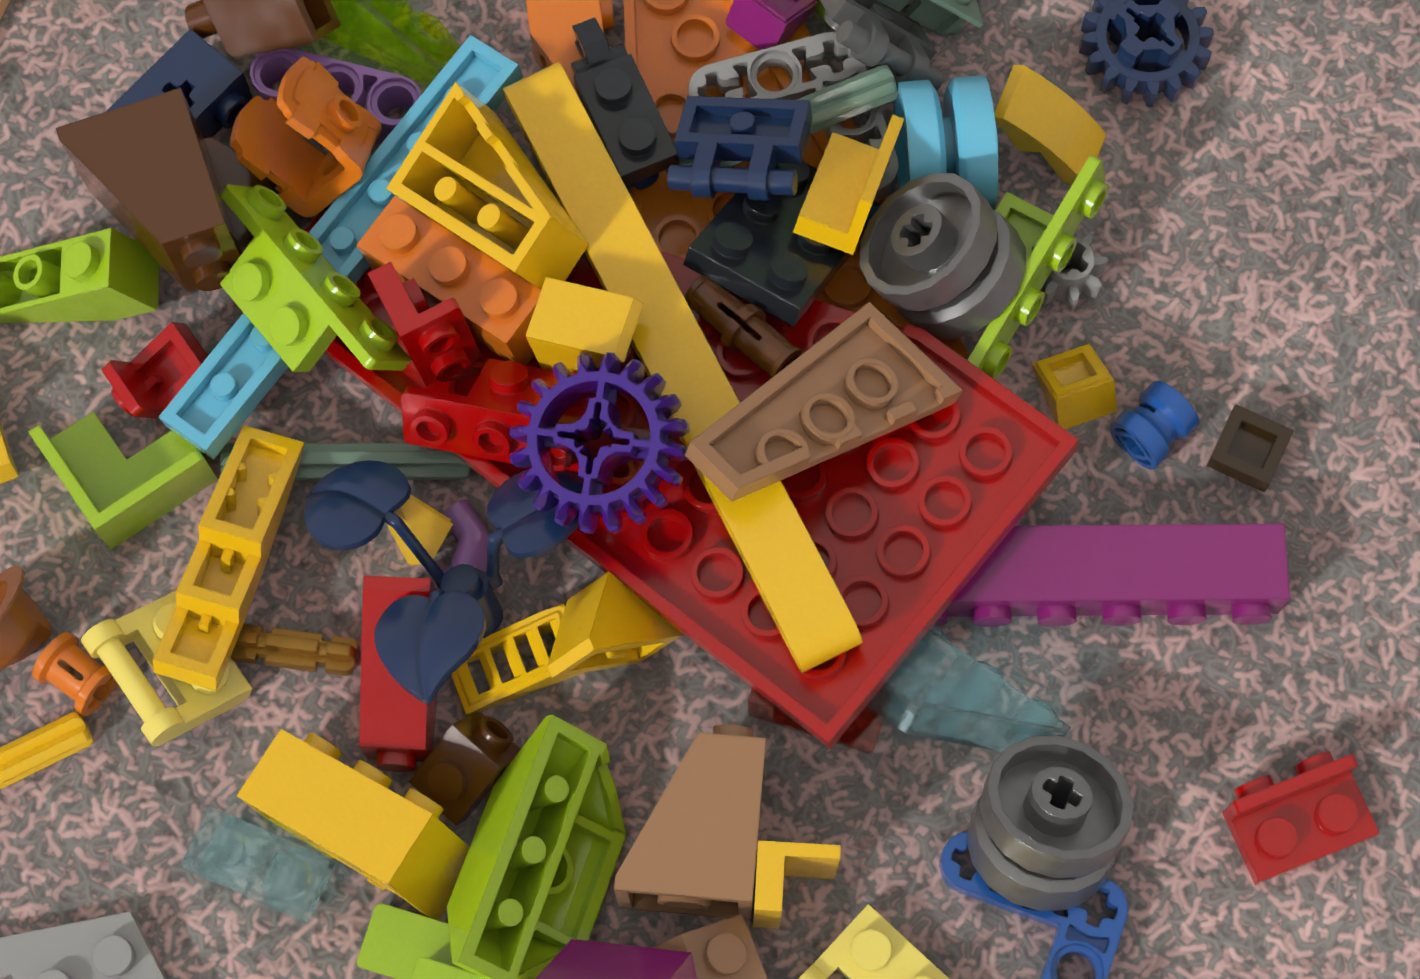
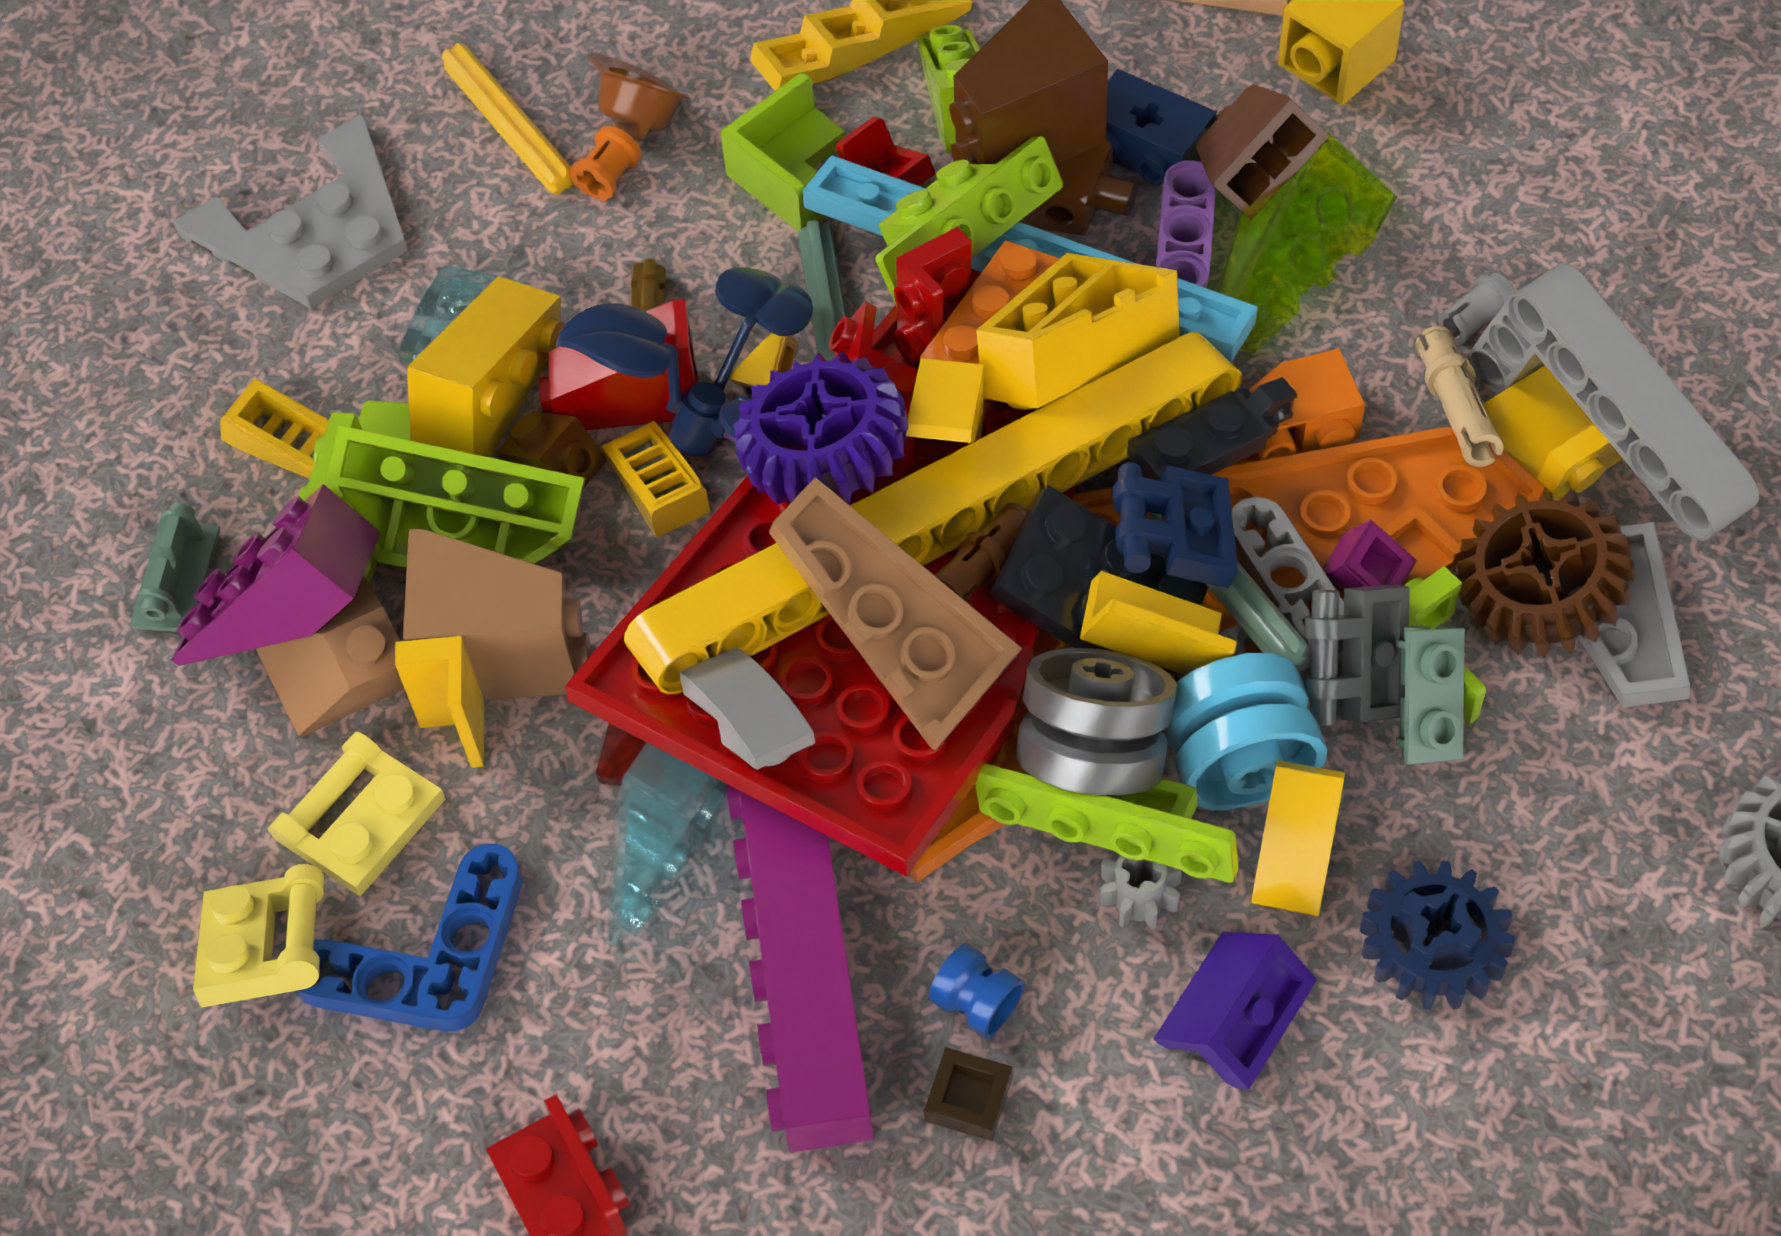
camera: 85 degrees right, 15 degrees down
(194, 702) = (628, 232): light yellow plate -> none
(228, 558) = (715, 234): yellow slope -> none
(309, 104) = (1120, 198): orange piece -> none
(607, 629) = (668, 509): yellow slope -> none
(903, 554) = (750, 708): none -> light grey slope
(1049, 822) = (517, 914): flat silver wheel -> none
(1076, 386) = (1014, 918): yellow slope -> none
(1185, 217) = (1238, 1005): none -> dark purple panel

